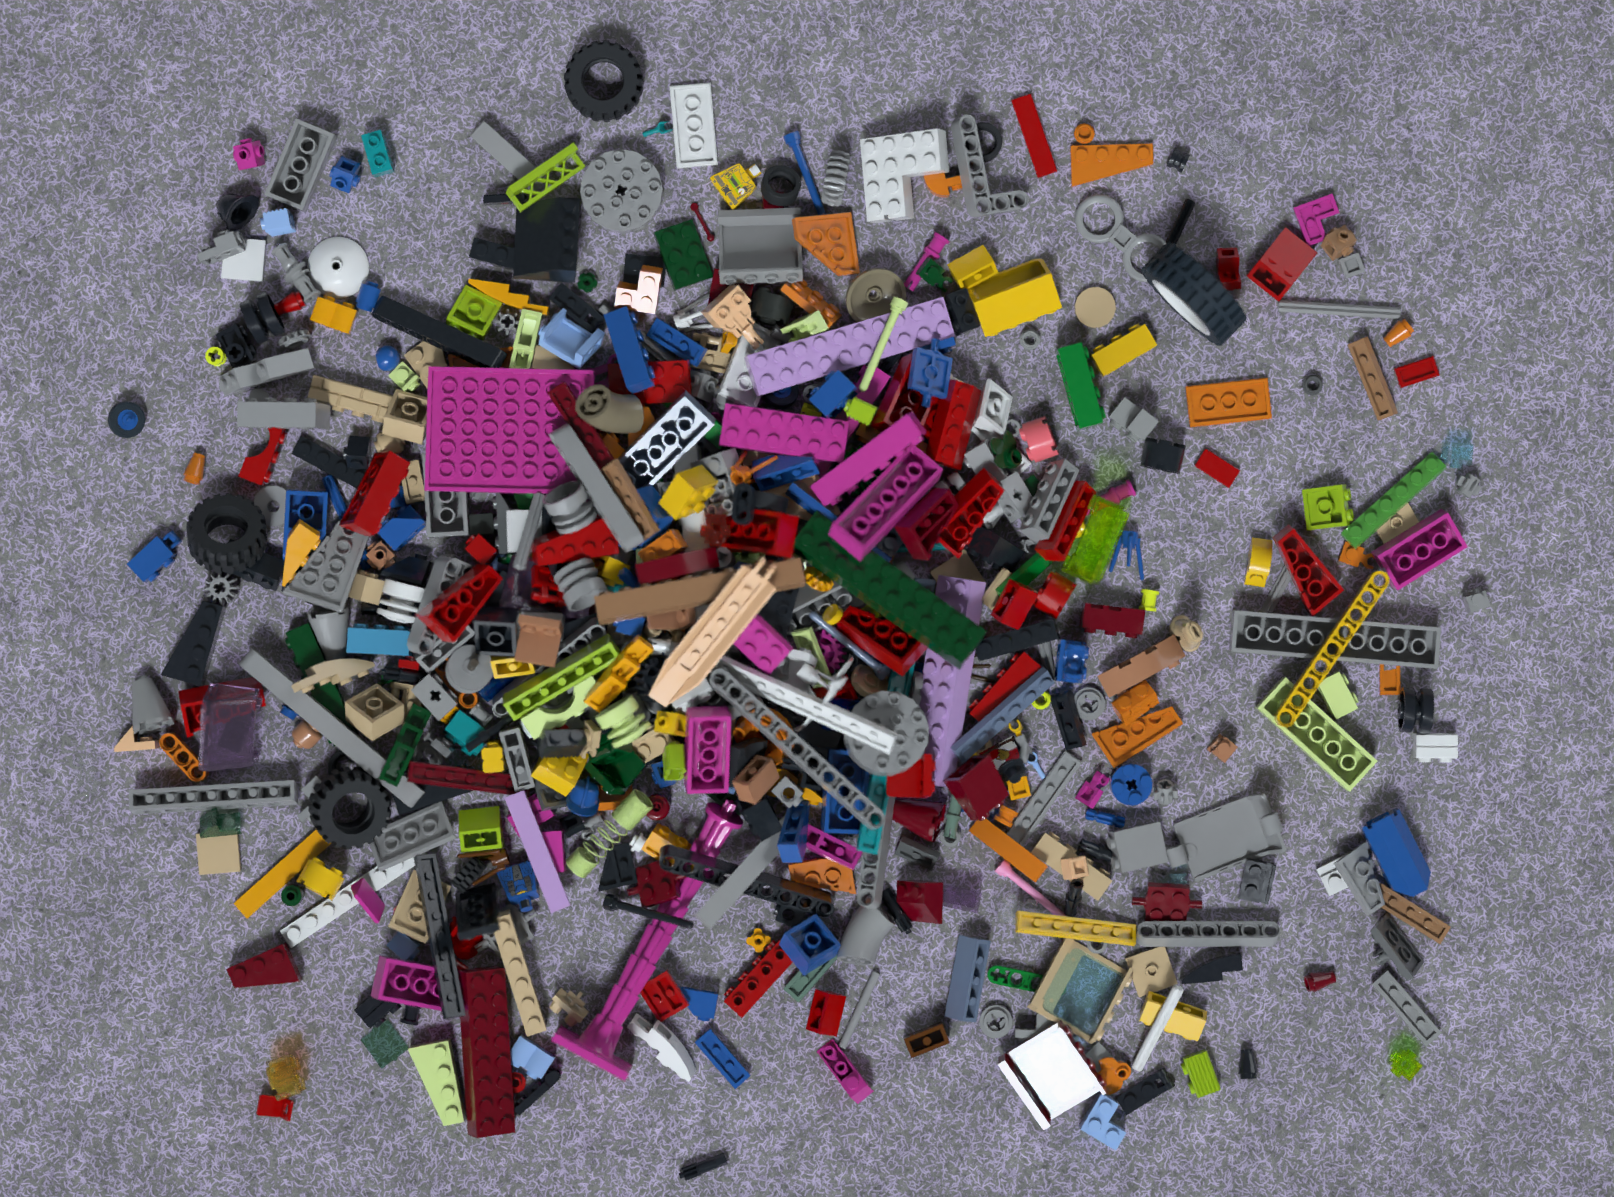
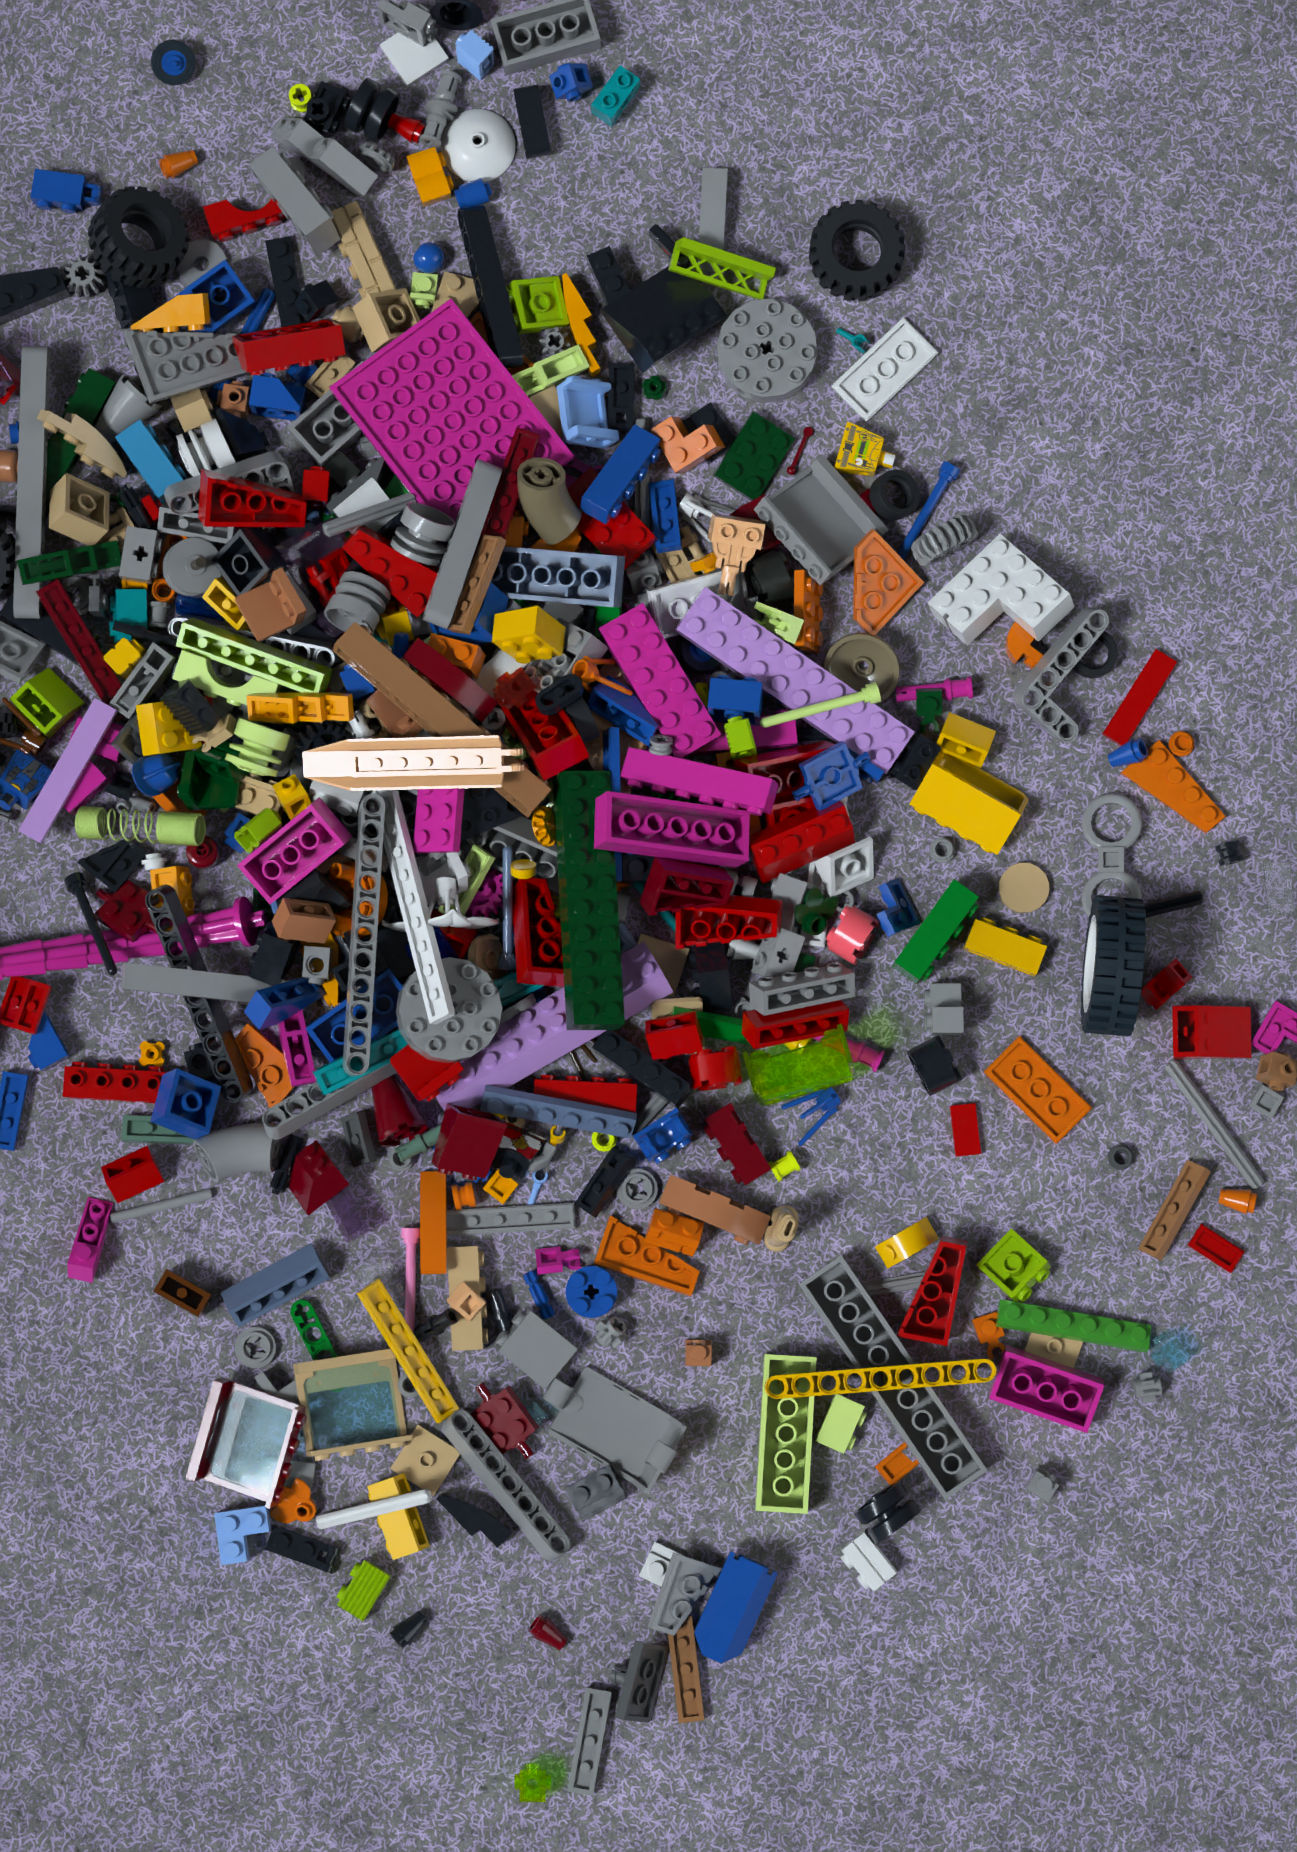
camera: 50 degrees right, 5 degrees down
(351, 220) = (532, 121): none -> black beam
(826, 465) = (660, 745): none -> light grey bush
(1049, 397) = (901, 913): none -> blue plate
(1065, 169) = (1129, 753): none -> blue cone

